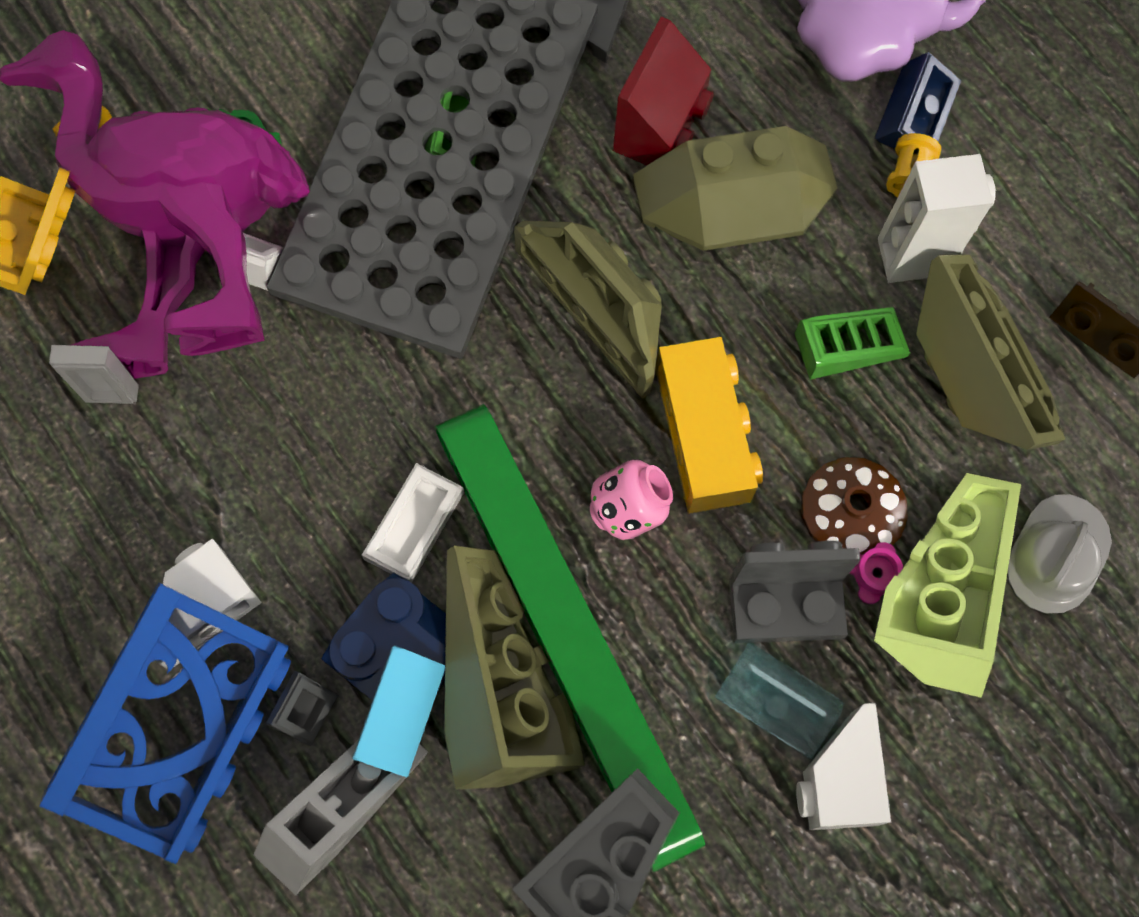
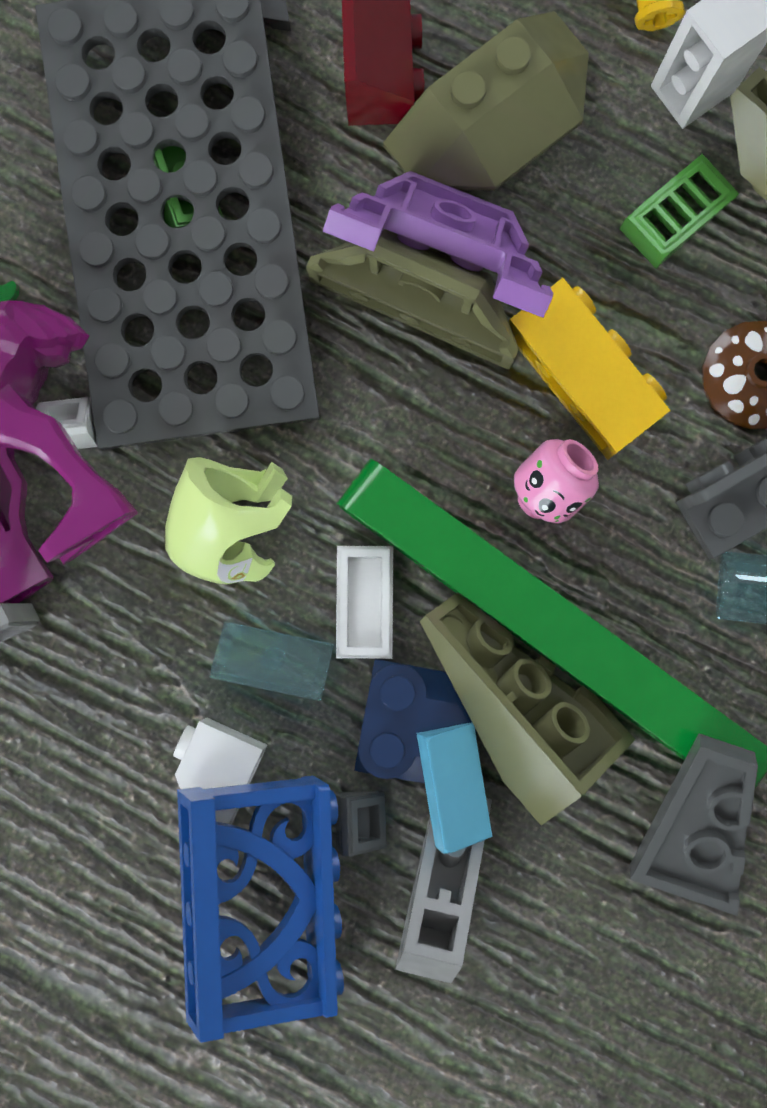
camera: 20 degrees left, 15 degrees up
(306, 531) = (272, 661): none -> clear light blue slope
(324, 369) = (207, 526): none -> yellowish green piece
(635, 233) = (451, 221): none -> medium lavender wing

